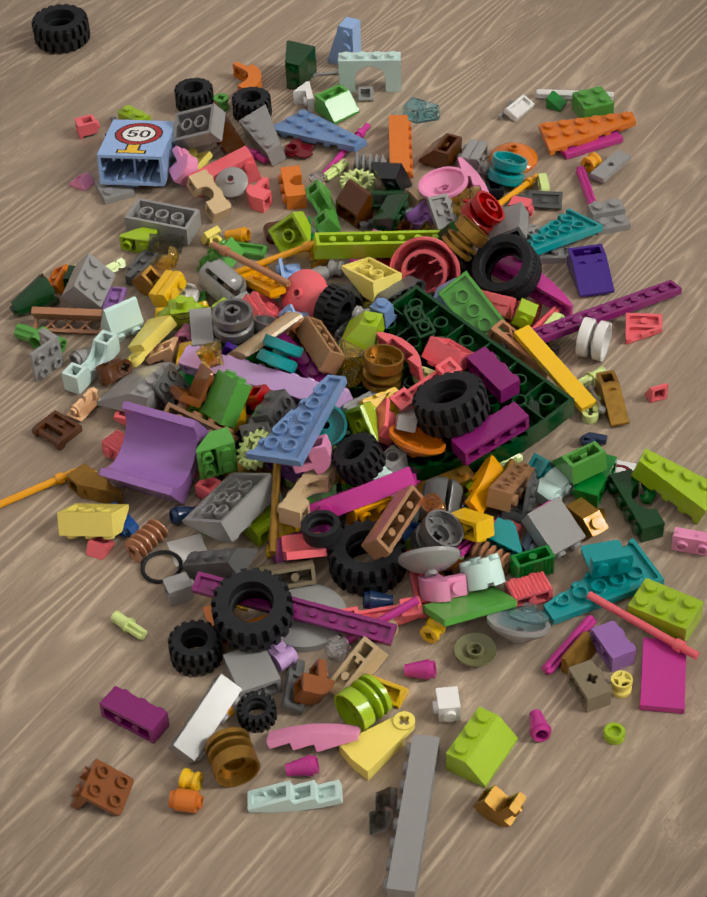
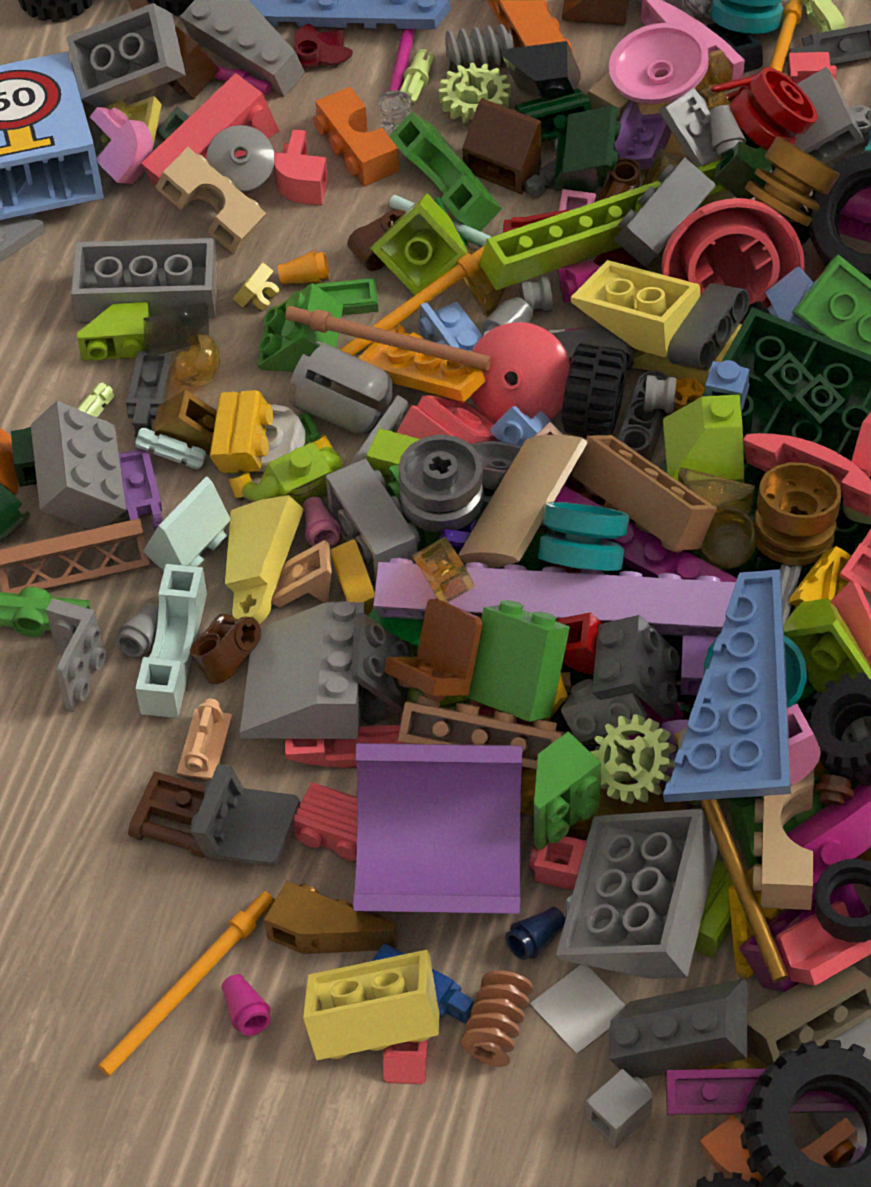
camera: 20 degrees left, 10 degrees up
(42, 509) = (246, 1007): none -> dark pink cone
(77, 436) = (243, 822): none -> dark grey bracket
(135, 289) = (170, 448): none -> light aqua axle
(157, 553) = (559, 1099): black tyre -> none
(337, 483) = (833, 789): none -> reddish brown plate
(389, 245) = (663, 210): none -> brick
(453, 213) = (724, 130): none -> light grey cone

